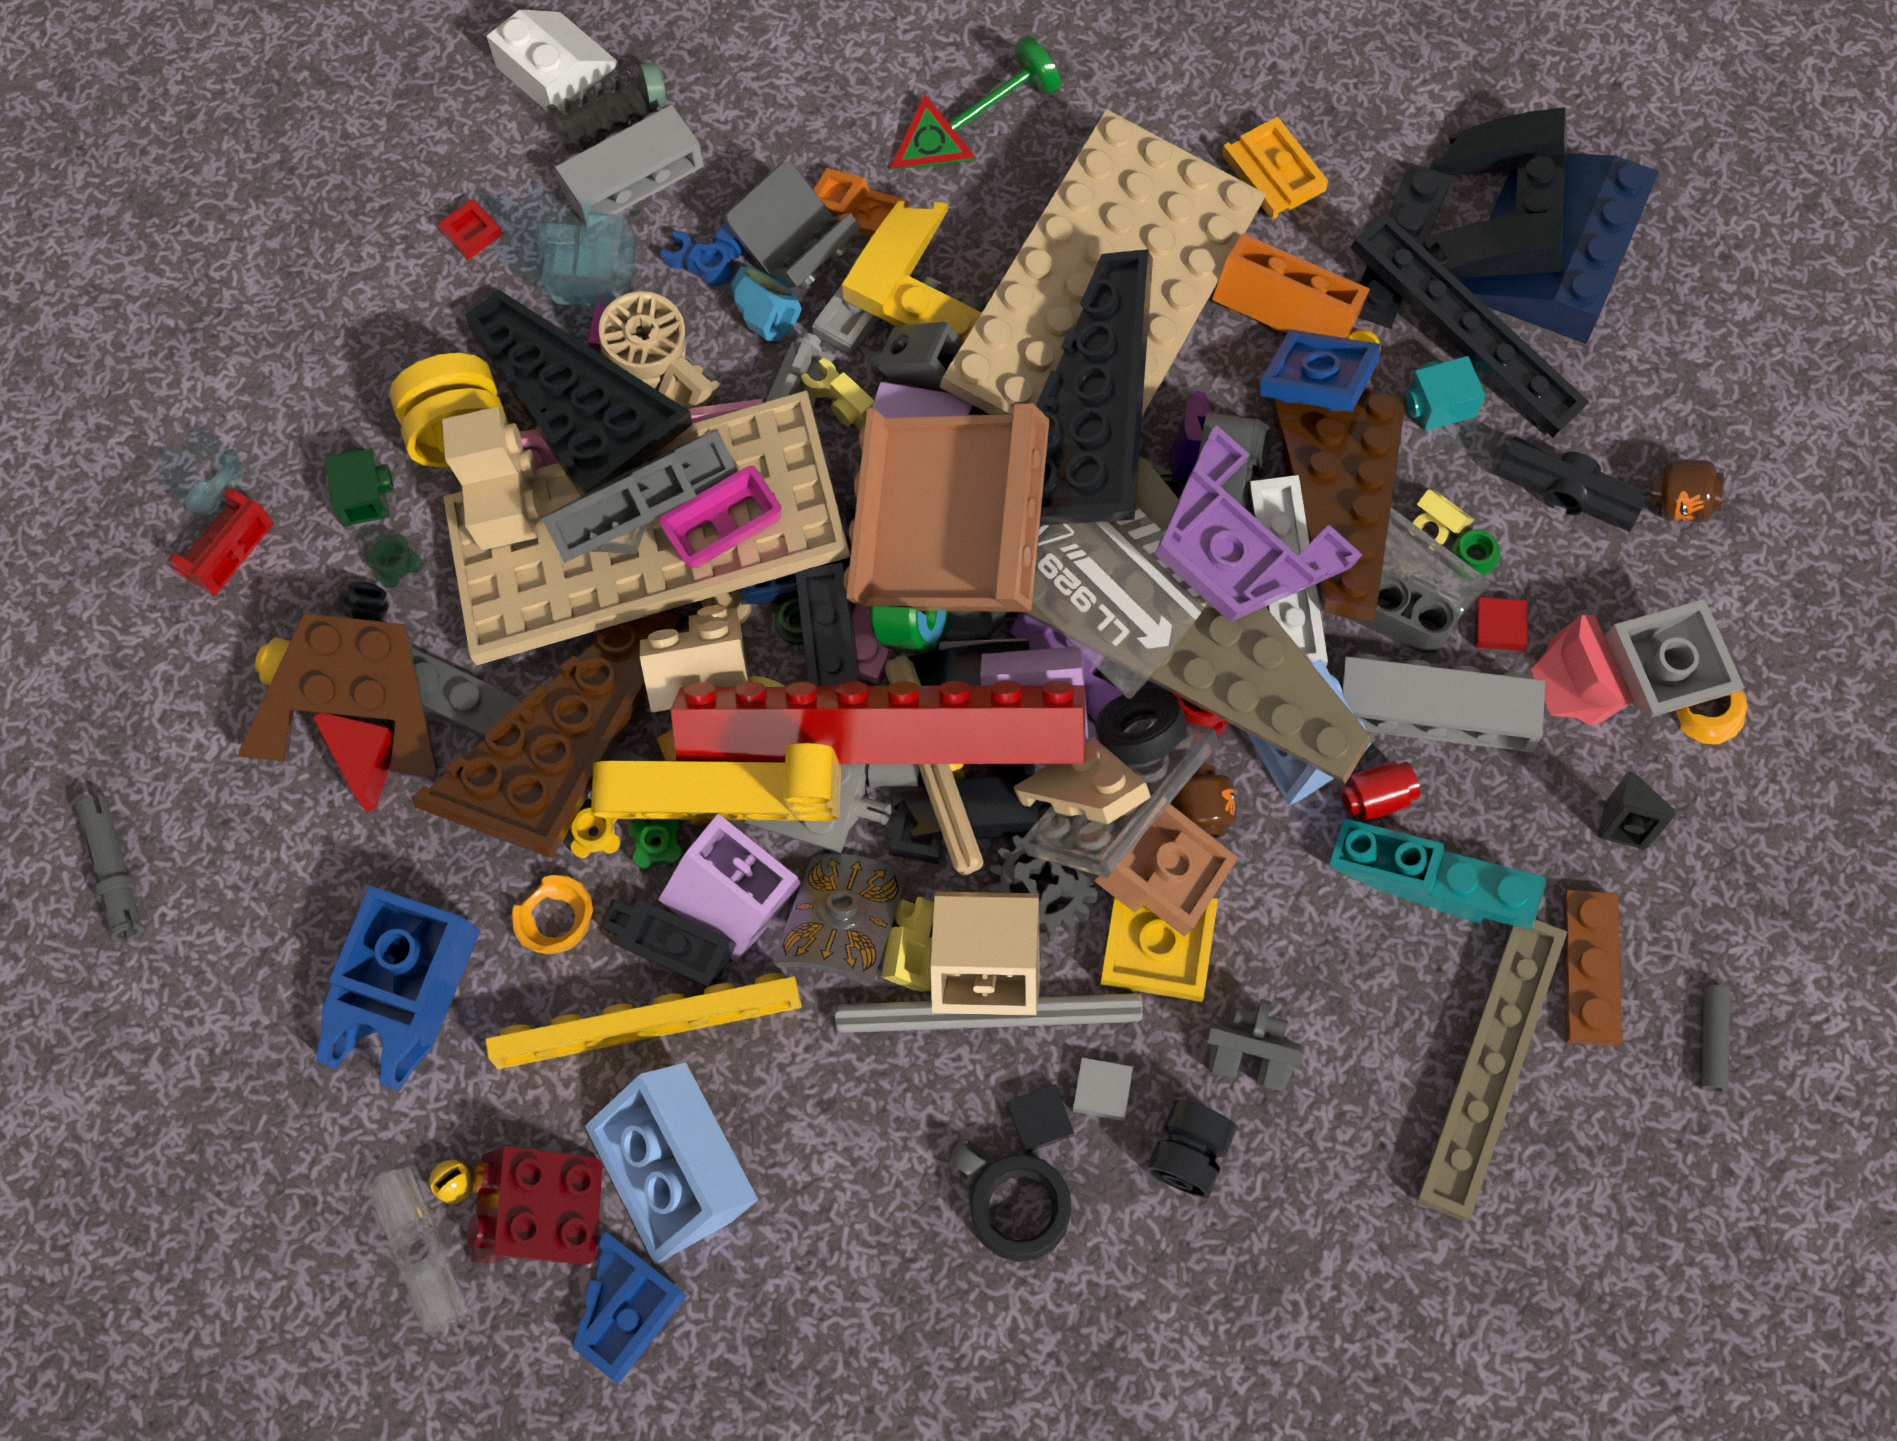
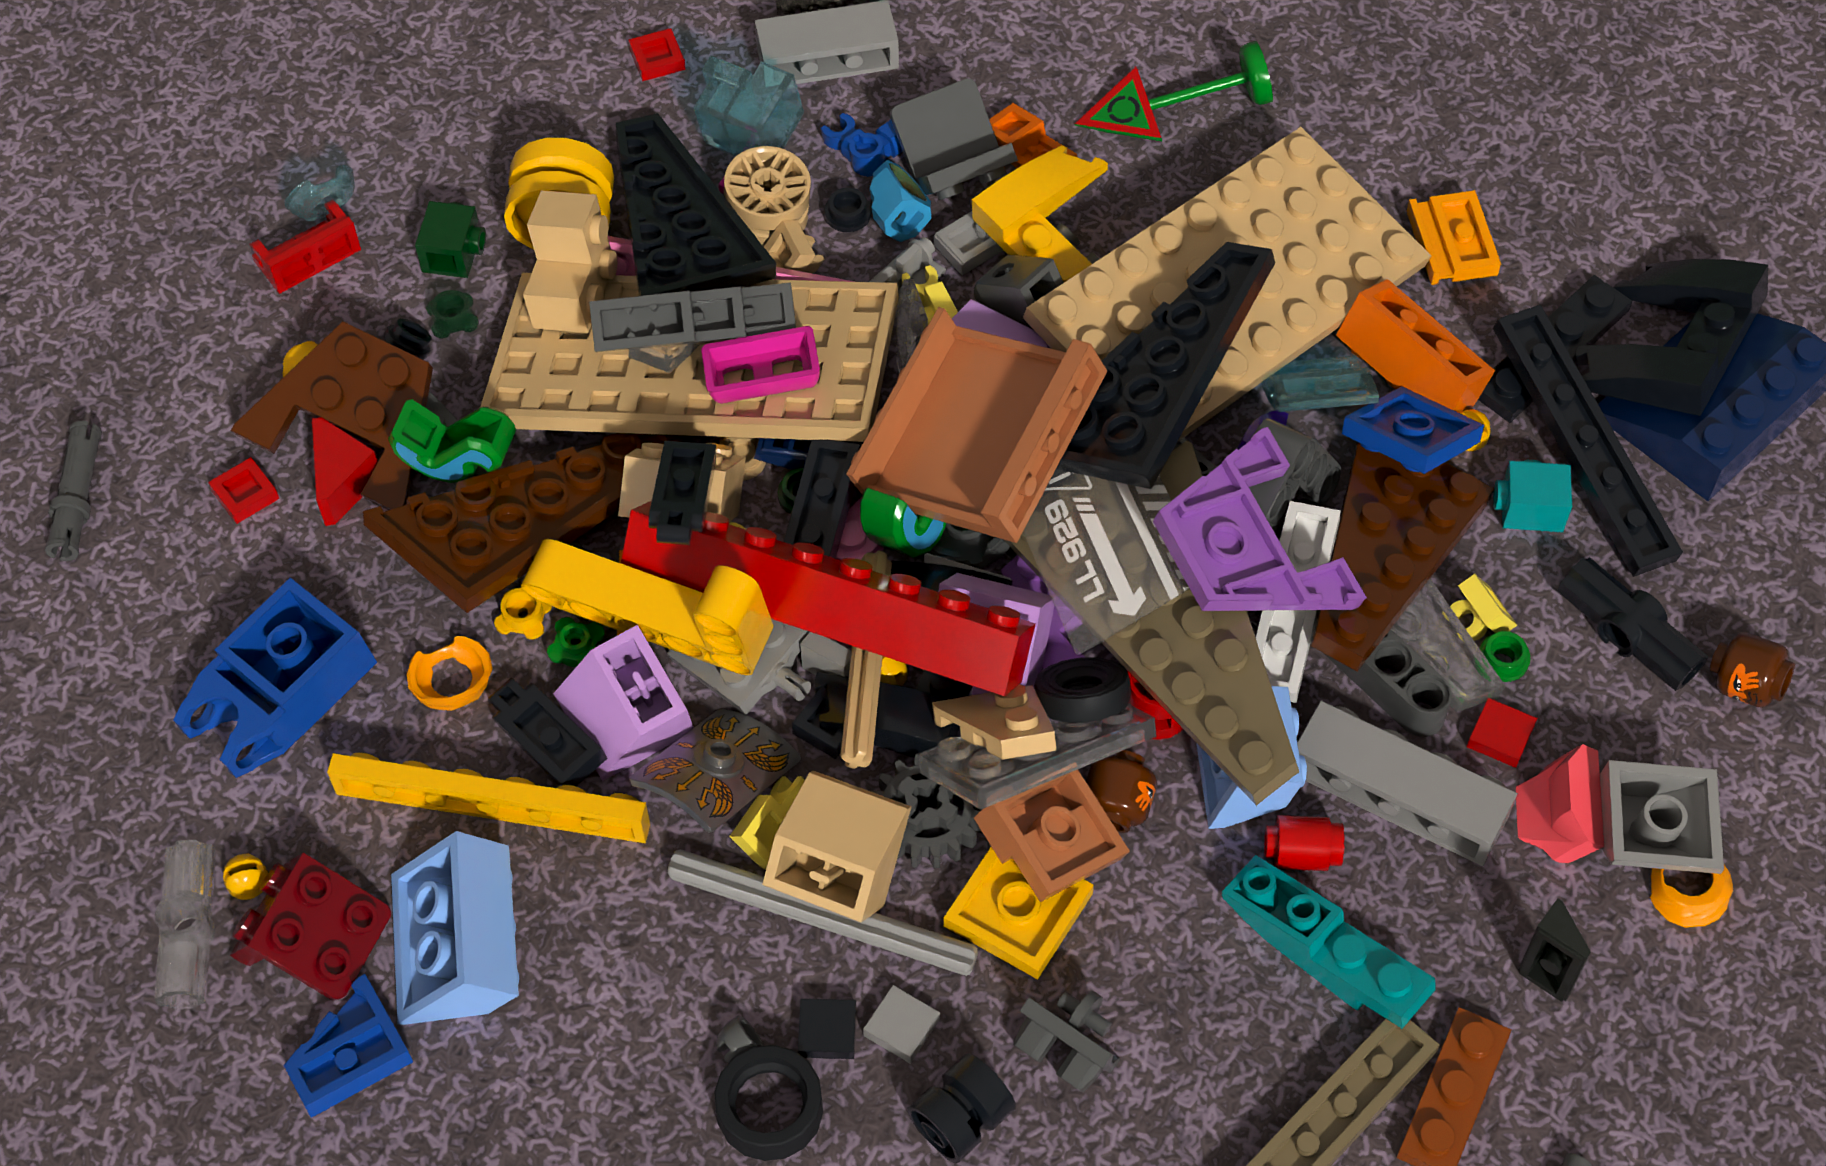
camera: 20 degrees right, 10 degrees down
(273, 807) = (243, 490): none -> red tile
(465, 700) = (452, 450): none -> green animal
(714, 677) = (682, 491): none -> black hinge
(720, 327) = (847, 210): none -> black plate
(831, 424) = (909, 323): none -> clear slope
(1222, 354) = (1320, 384): none -> clear light blue slope

